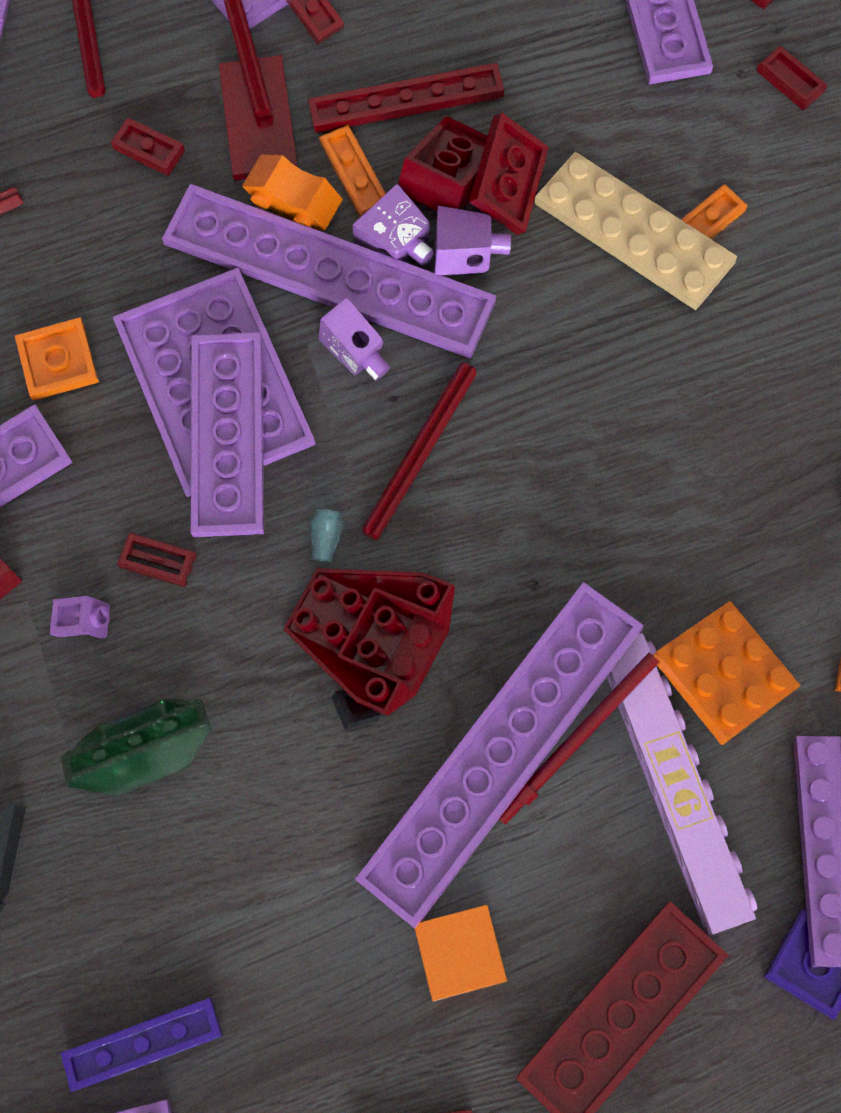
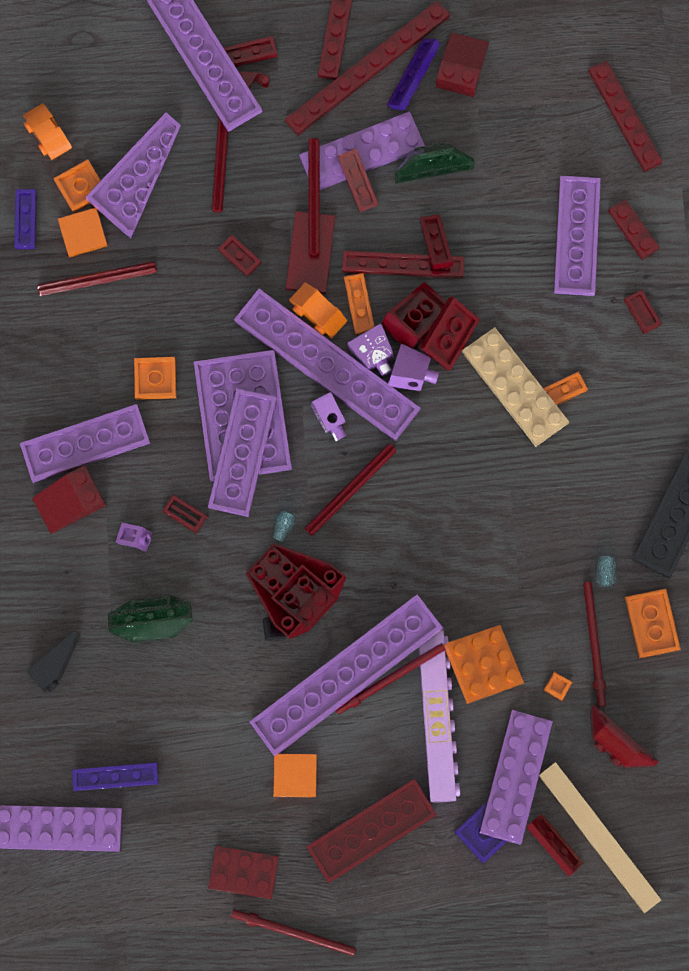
camera: 15 degrees right, 5 degrees up
(448, 50) = (436, 242): none -> dark red plate

